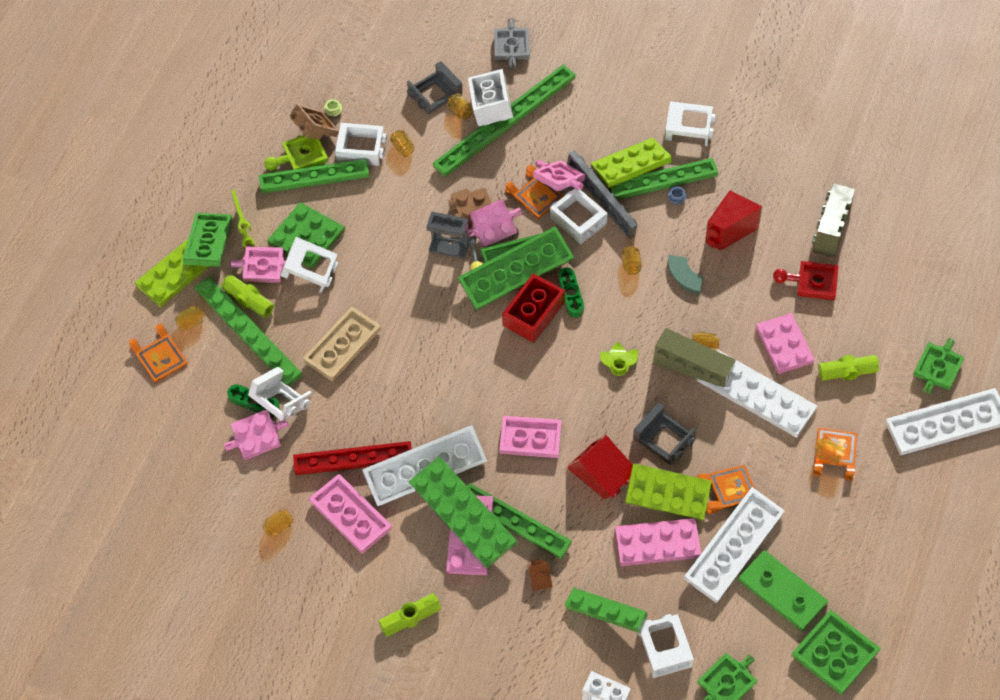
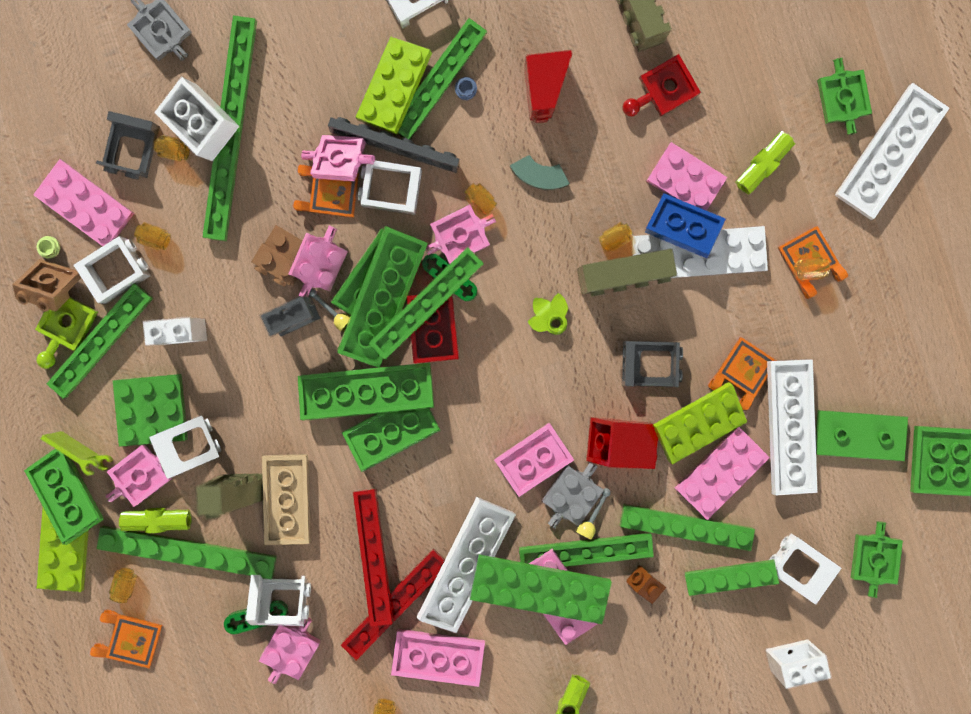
camera: 40 degrees left, 30 degrees up
(313, 299) = (228, 494): none -> olive wedge
(366, 415) = (373, 558): none -> red plate
(368, 197) = (175, 331): none -> white window
(377, 100) = (83, 203): none -> bright pink plate
(449, 352) = (388, 435): none -> bright green plate
(455, 315) = (365, 391): none -> bright green plate
(528, 506) = (587, 528): none -> hinge
(537, 479) = (572, 495): none -> light grey plate
(542, 282) = (426, 303): none -> bright green plate
(600, 271) = (458, 232): none -> bright pink plate
(602, 560) = (687, 527): none -> bright green plate
(759, 363) = (685, 225): none -> blue plate

